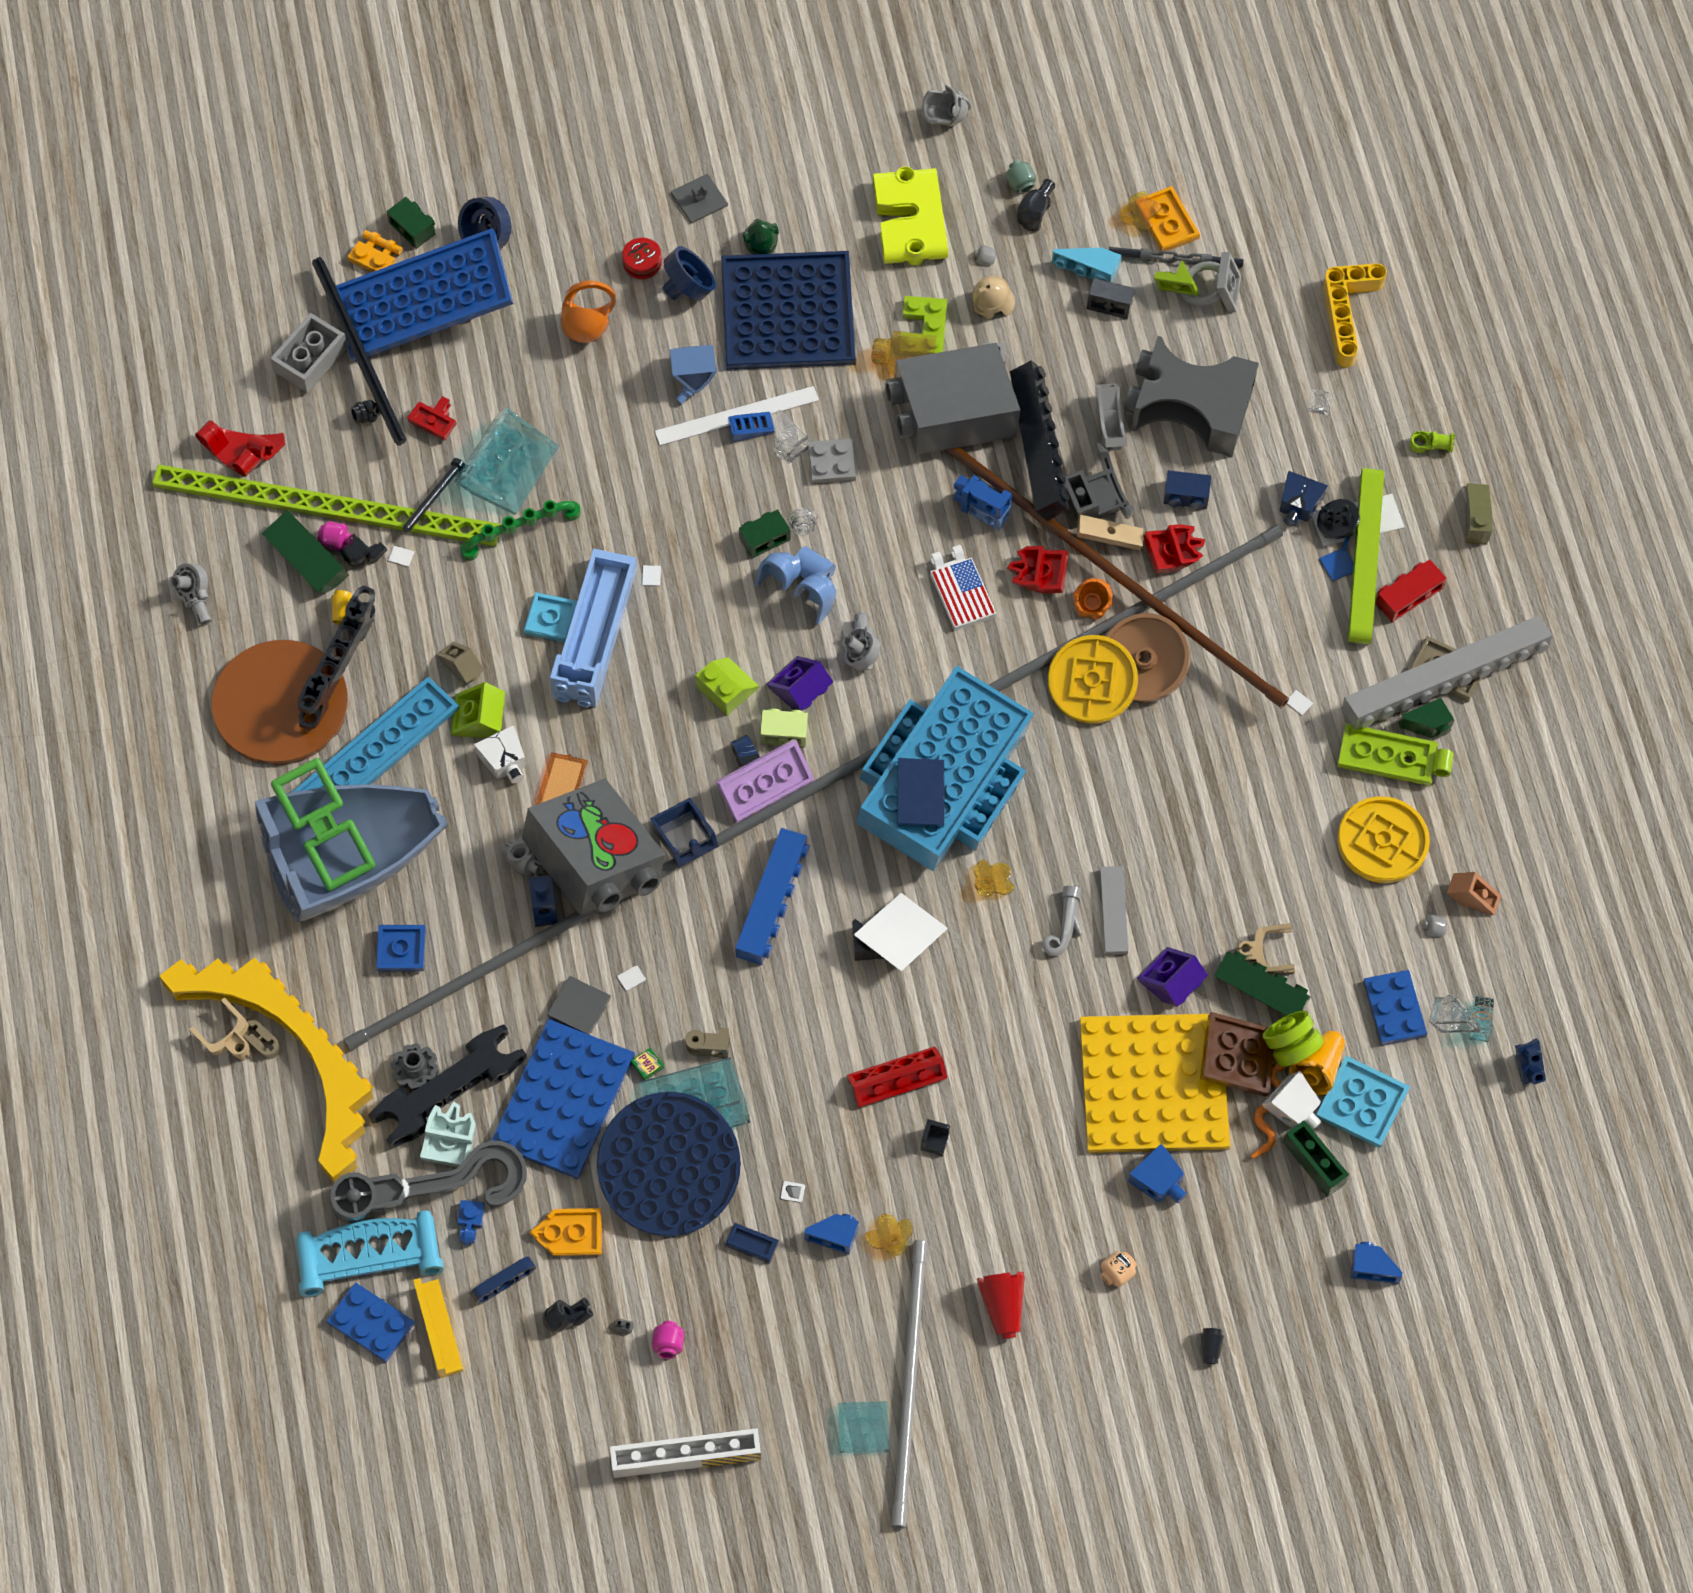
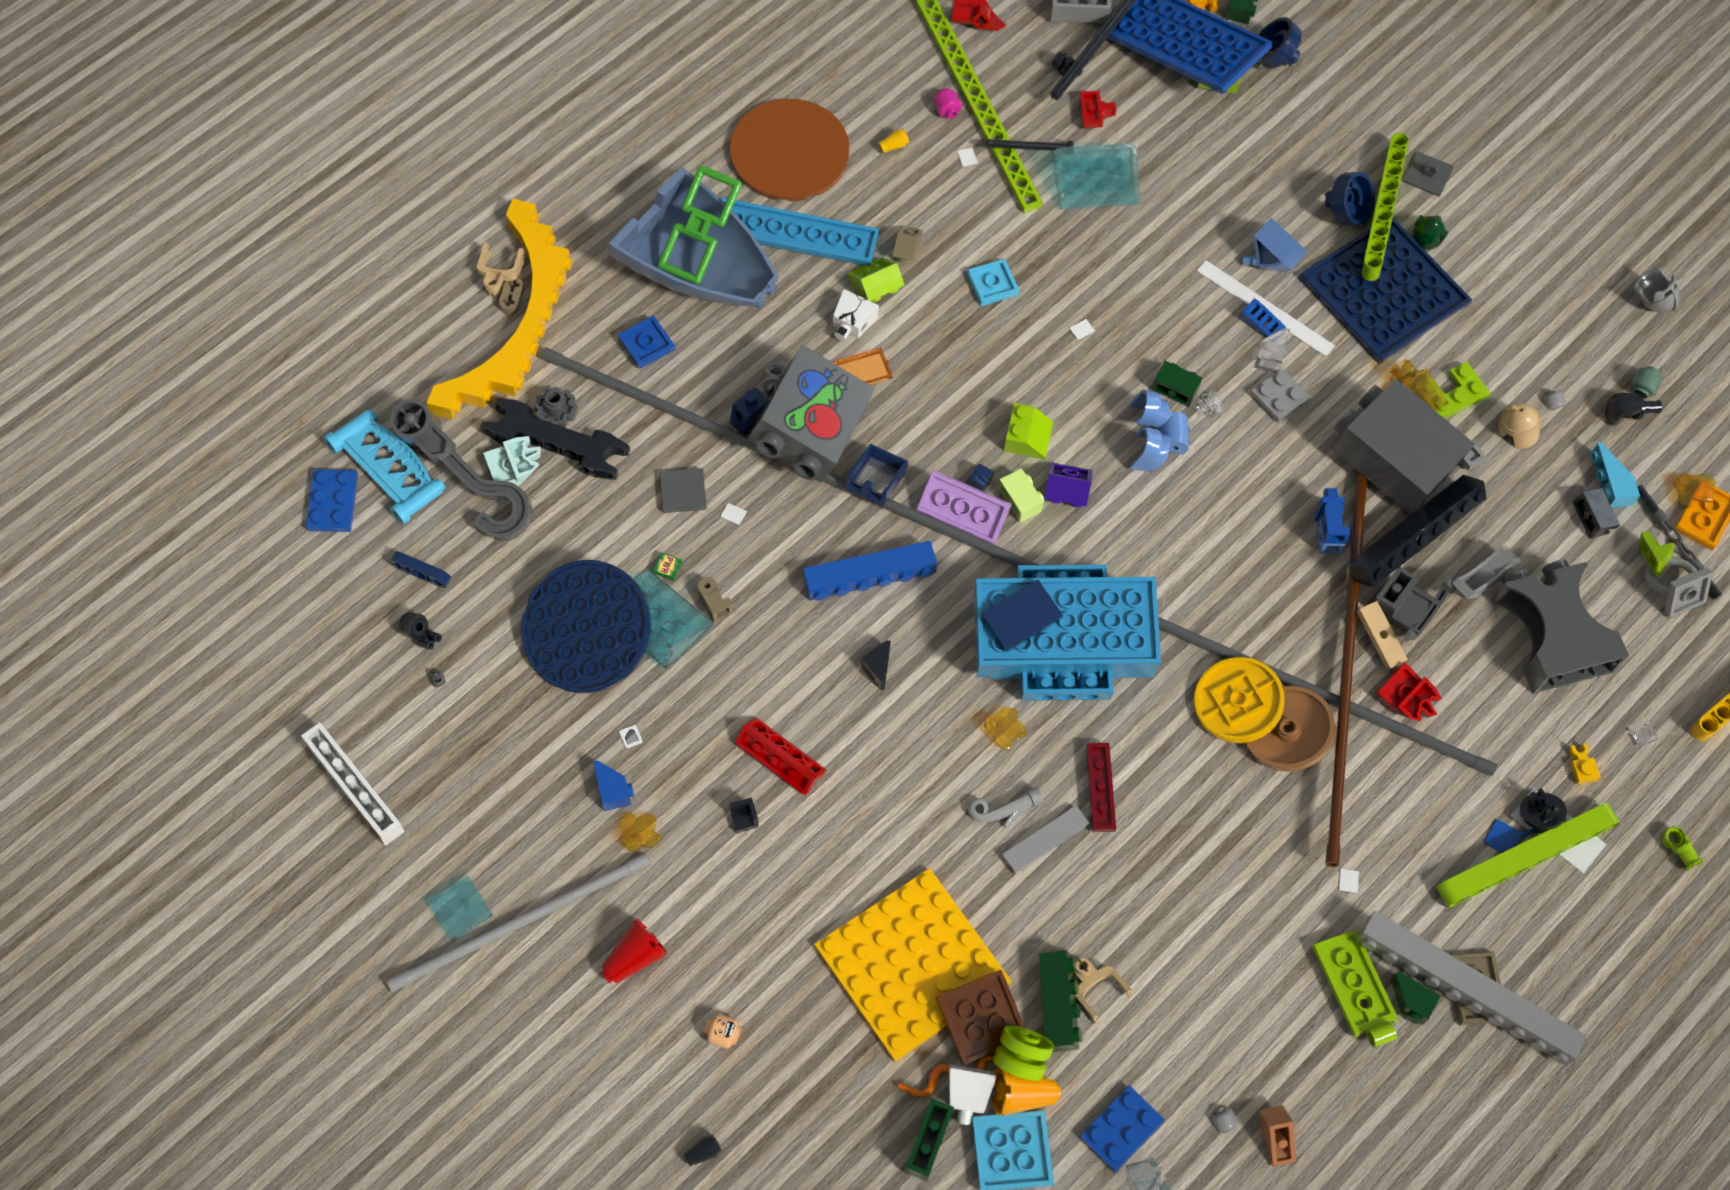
camera: 55 degrees right, 0 degrees up
(196, 595) = (836, 40): light grey pin -> none
(305, 553) = (917, 93): dark green brick -> none
(319, 687) = (812, 161): black piece -> none
(357, 551) = (946, 125): black piece -> none
(438, 1327) = (353, 546): yellow fence -> none
(470, 1215) = (460, 516): blue plate -> none
(564, 1098) = (599, 523): blue plate -> none
(570, 509) = (1006, 198): green bar -> none
(571, 1232) = (492, 595): light orange tile -> none
(581, 323) = (1252, 155): orange piece -> none
(593, 629) = (1002, 314): light blue brick -> none
(642, 258) = (1341, 160): red head -> none
(668, 1340) = (442, 715): dark pink head -> none
(715, 261) = (1385, 207): none -> lime beam
(752, 1243) = (566, 731): dark blue tile -> none
(861, 644) = (1132, 510): light grey pin -> none
(901, 931) = (905, 683): white sticker -> none
(921, 231) = (1561, 320): neon yellow connector -> none
(961, 590) = (1242, 555): tile -> none
(1040, 569) = (1307, 602): red plate -> none
(1092, 598) = (1312, 657): orange hair -> none
(1097, 837) = (1101, 787): none -> dark red plate
(1159, 1176) = (828, 1016): blue torso -> none
(1173, 976) = (1017, 922): dark purple slope -> none
(1187, 489) = (1471, 673): dark blue brick -> none
(1301, 498) = (1538, 769): dark blue torso -> none
(1319, 464) = (1583, 768): none -> yellow plate
(1383, 839) = (1272, 1026): yellow plate -> none
(1410, 590) = (1525, 911): red brick -> none
(1478, 514) = (1645, 927): olive slope -> none

